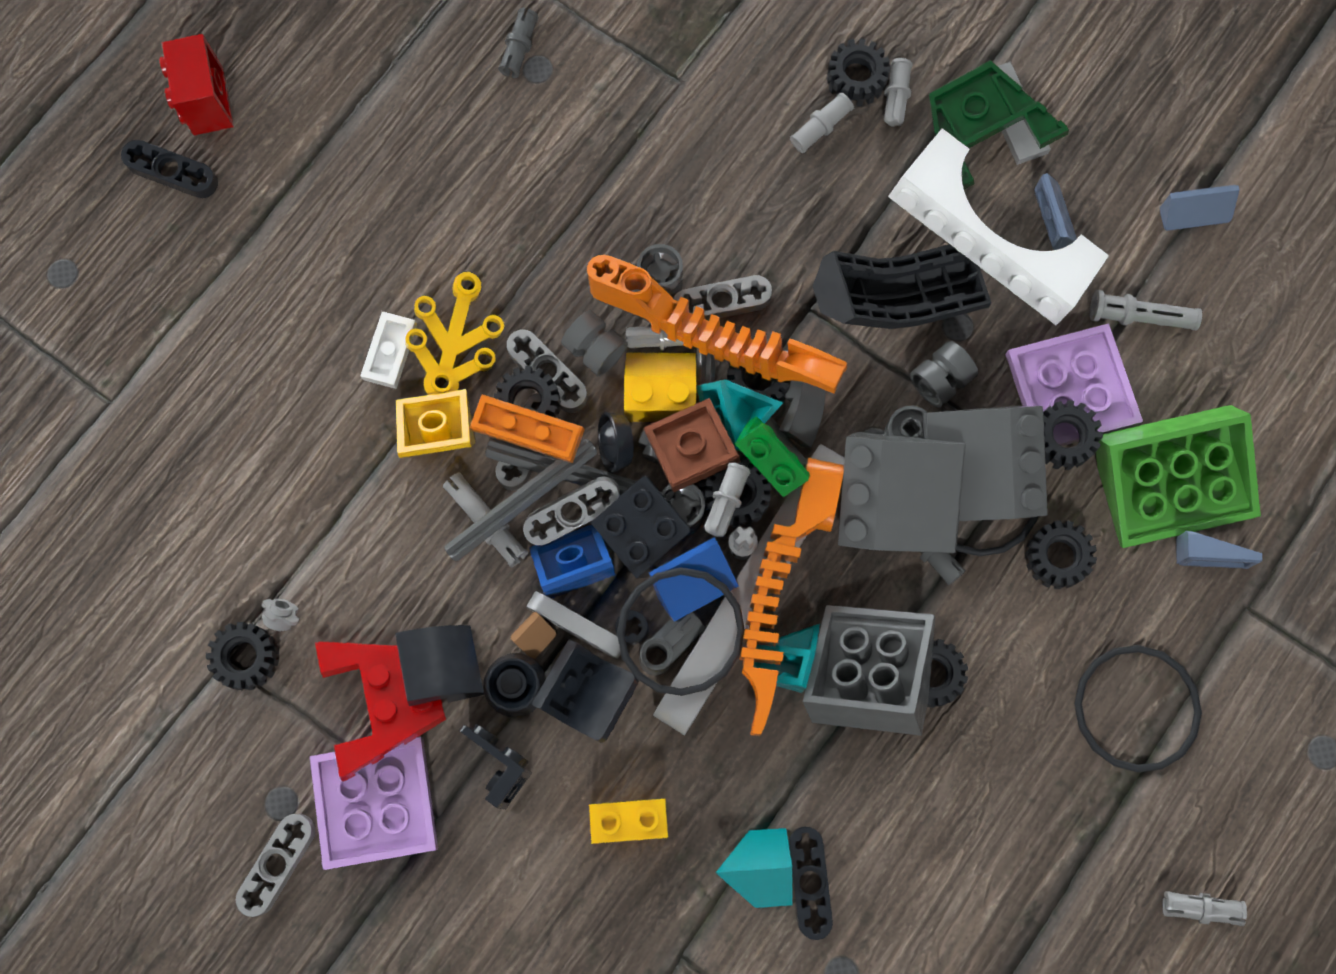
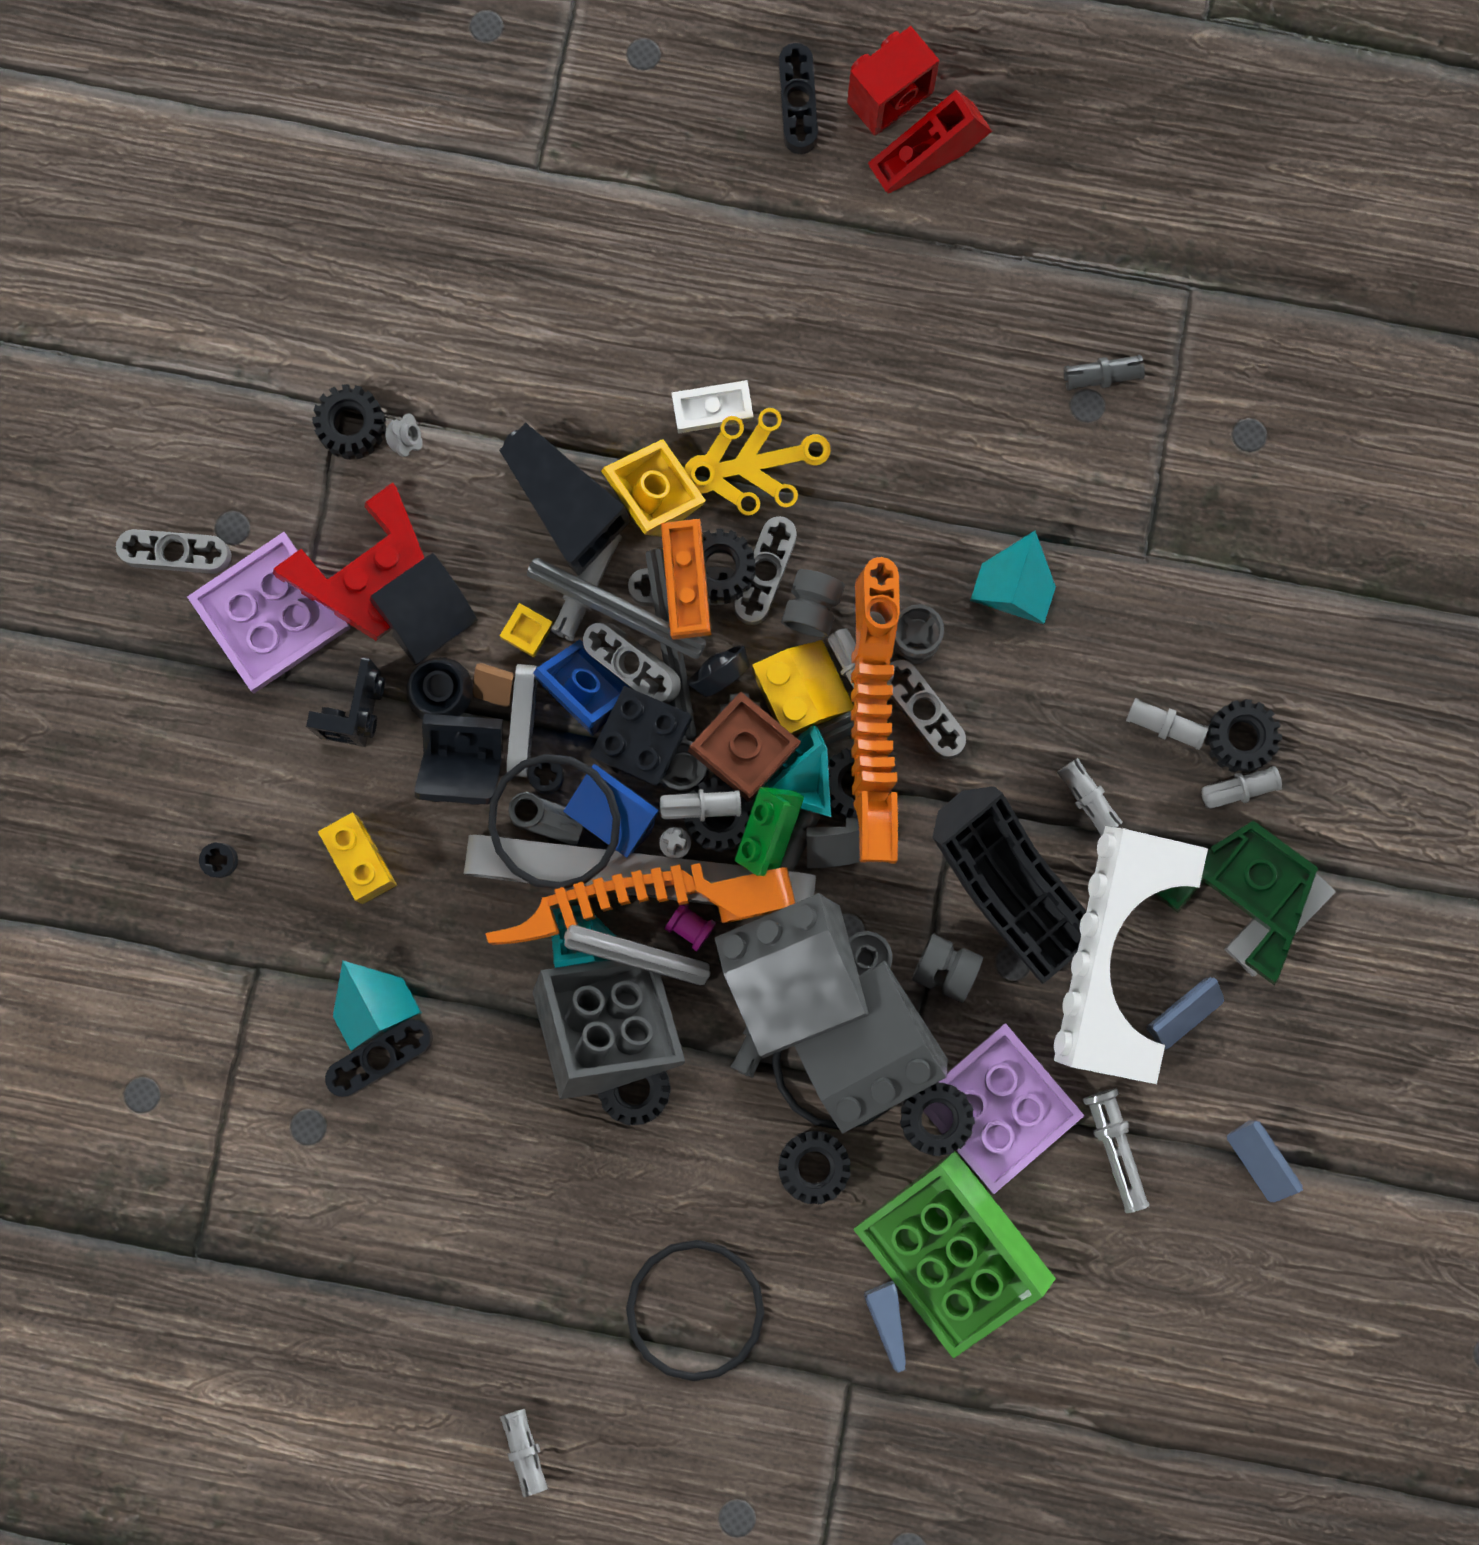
camera: 65 degrees right, 5 degrees up
(263, 83) = (931, 142): none -> red slope
(404, 501) = (569, 502): none -> black slope
(500, 586) = (526, 630): none -> yellow plate
(565, 938) = (211, 870): none -> black bush
(652, 182) = (1017, 581): none -> teal slope
(816, 564) = (690, 926): none -> magenta bush
(823, 616) = (636, 955): none -> light grey axle
(853, 205) = (1089, 796): none -> light grey pin

